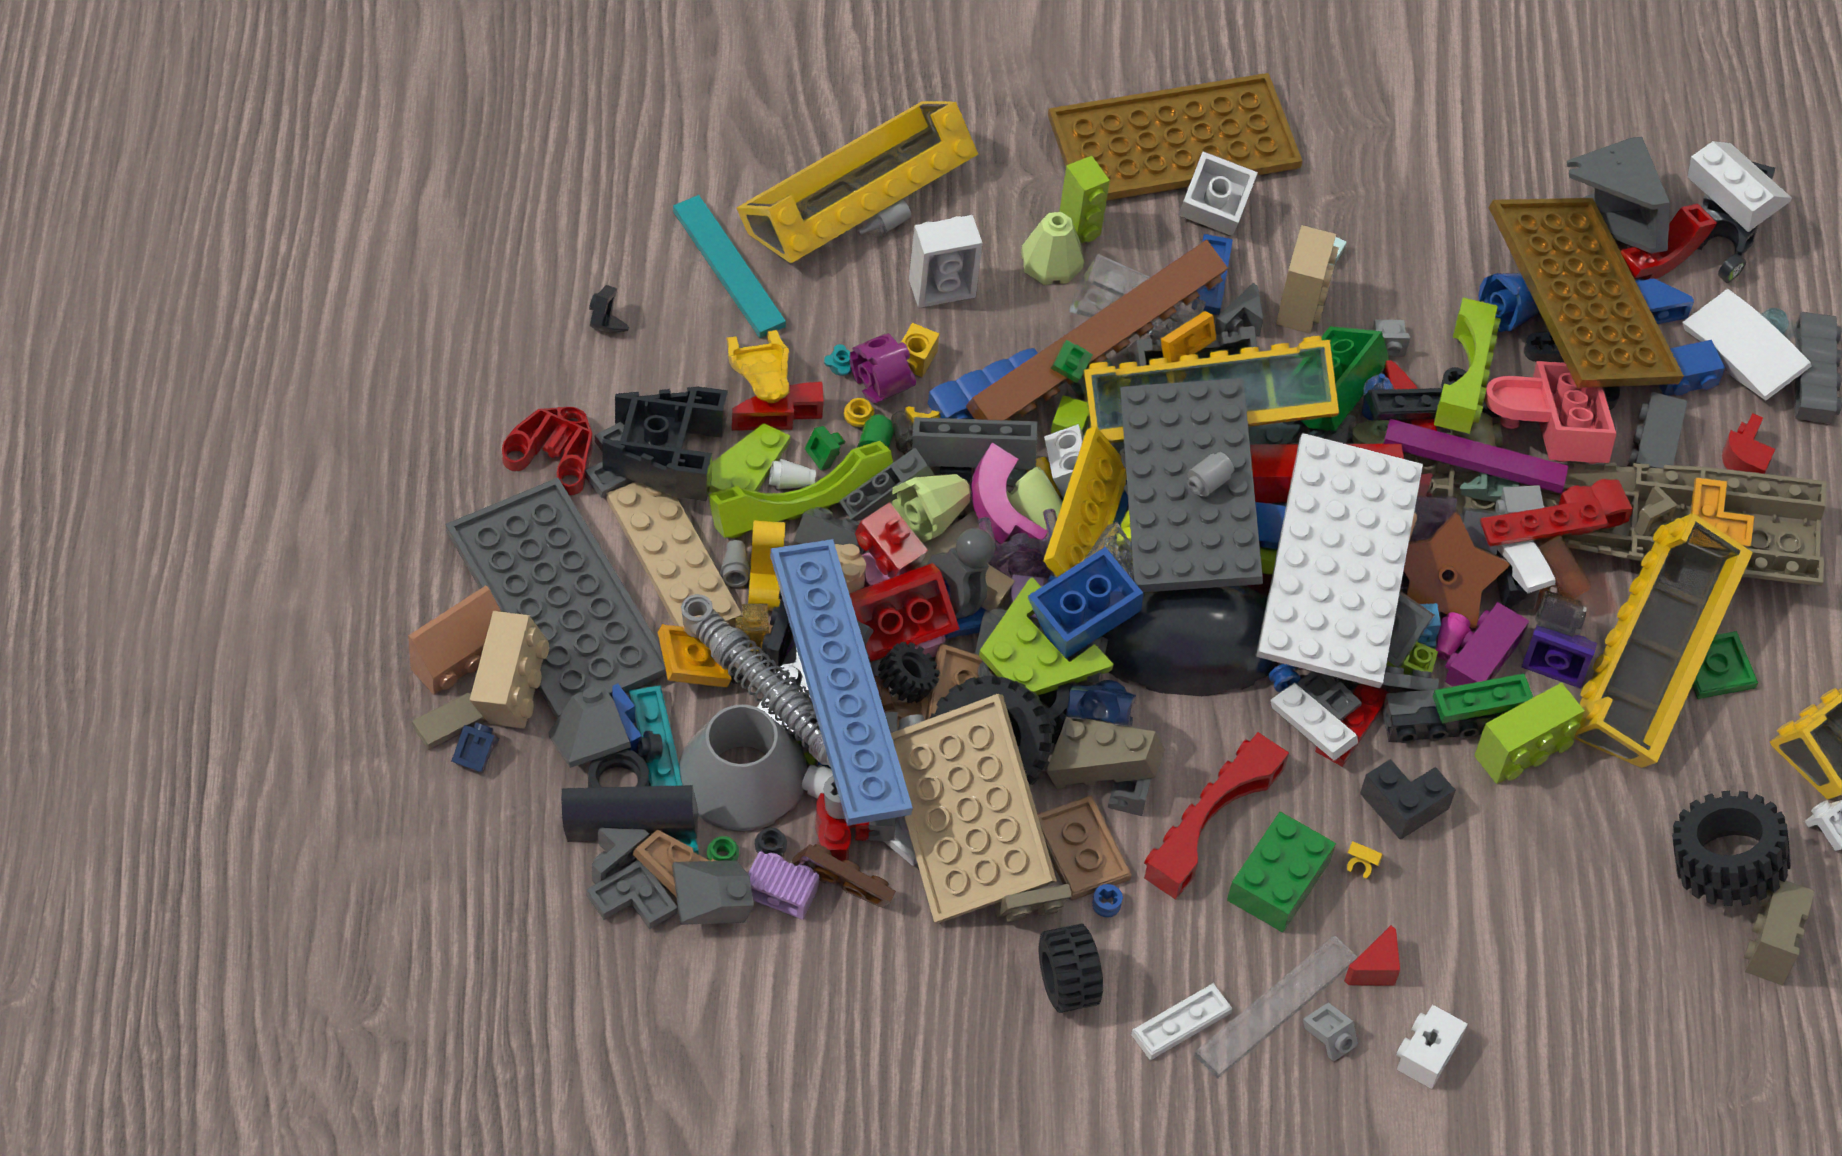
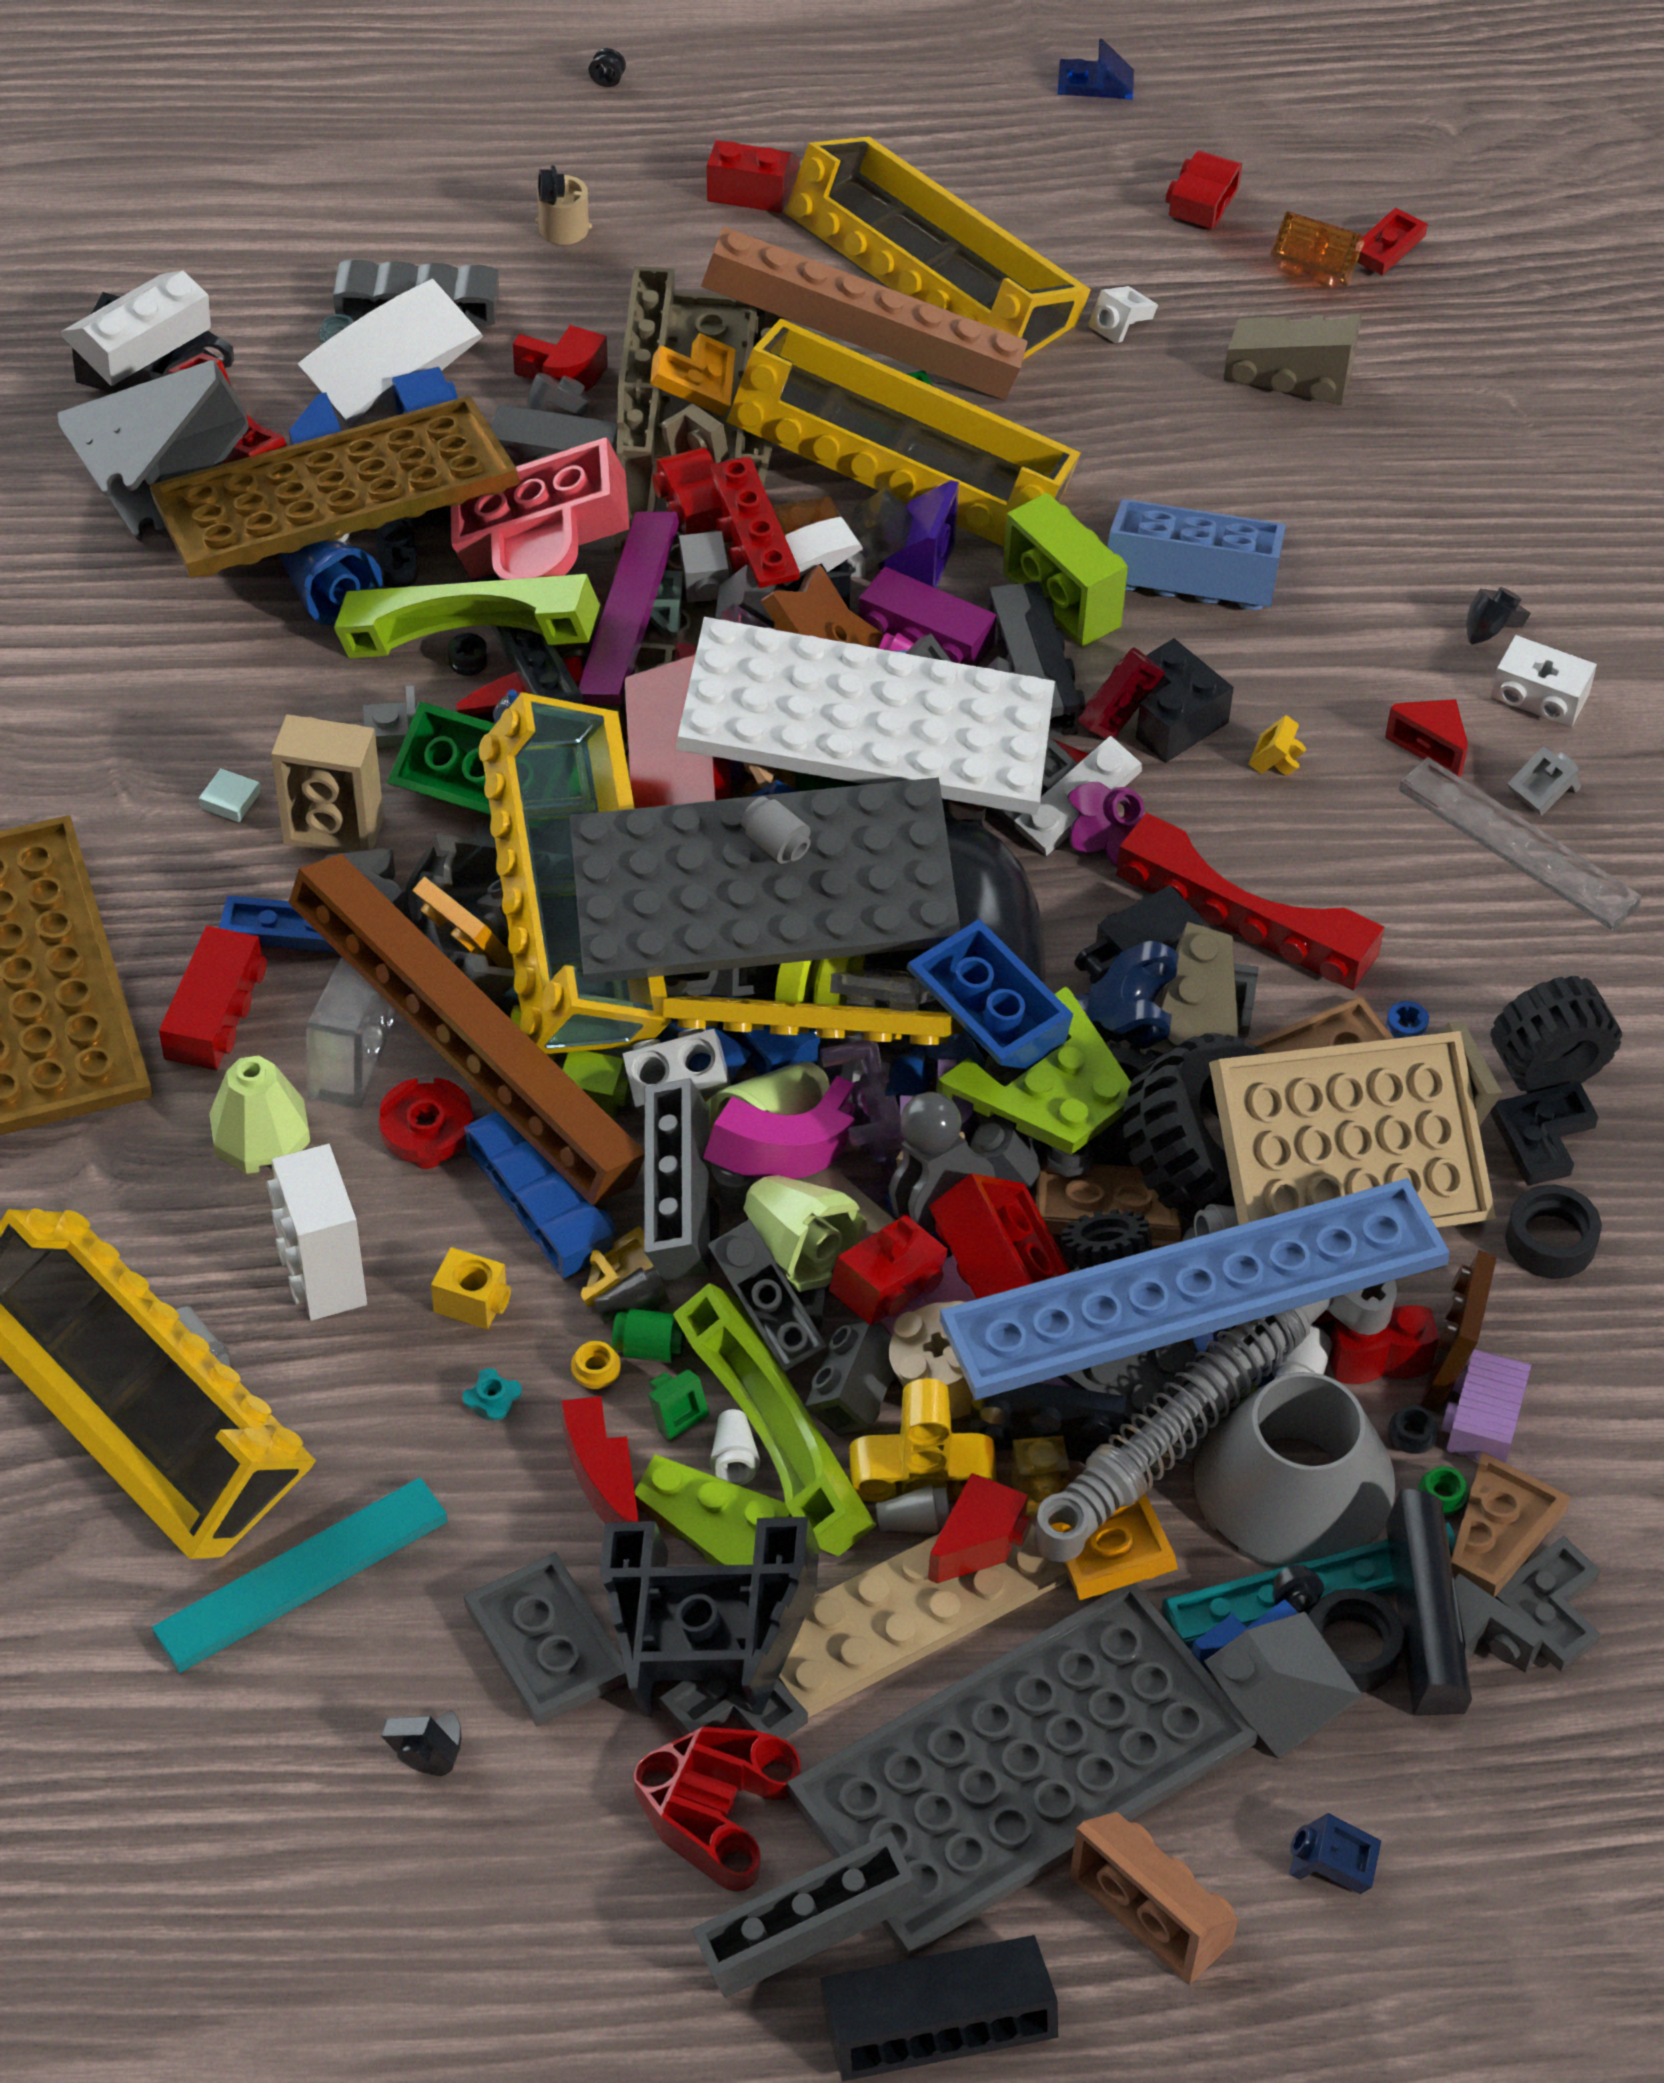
camera: 90 degrees left, 5 degrees down
(409, 537) = (939, 2007): none -> black brick
(446, 721) = (1287, 1907): dark tan tile -> none
(464, 469) = (807, 1915): none -> dark grey brick
(509, 670) = (1215, 1789): tan brick -> none
(671, 367) = (546, 1638): none -> dark grey plate
(708, 577) = (979, 1530): none -> red slope
(712, 892) = (1536, 1477): dark grey slope -> none
(762, 366) = (529, 1487): yellow animal -> none
(882, 367) = (525, 1320): magenta brick -> none
(920, 931) = (1560, 1203): none -> black tyre
(1012, 958) = (1534, 1125): none -> black plate
(1044, 323) = (428, 1143): none -> red plate
(1071, 361) = (529, 1042): green tile -> none
(1085, 197) = (185, 1053): lime brick -> none
(1149, 230) = (212, 998): none -> red brick
(1181, 1021) = (1570, 940): white tile -> none
(1185, 744) = (1153, 918): none -> black brick
(1217, 193) = (150, 904): white brick -> none
(1281, 871) = (1325, 829): green brick -> none
(1283, 677) = (1008, 829): blue bush -> none
(1291, 728) = (1099, 821): none -> magenta plate
(1403, 750) = (1121, 694): none -> dark red bracket
(1481, 698) = (1030, 604): green plate -> none
(1506, 1029) = (1493, 611): none -> black plate
(1566, 833) = (1198, 553): none -> medium blue slope
(1709, 445) = (564, 393): none -> dark grey plate
(1731, 268) = (251, 365): black tile -> none
(1731, 875) = (1213, 421): black tyre -> none
(1782, 623) = (864, 313): none -> nougat brick

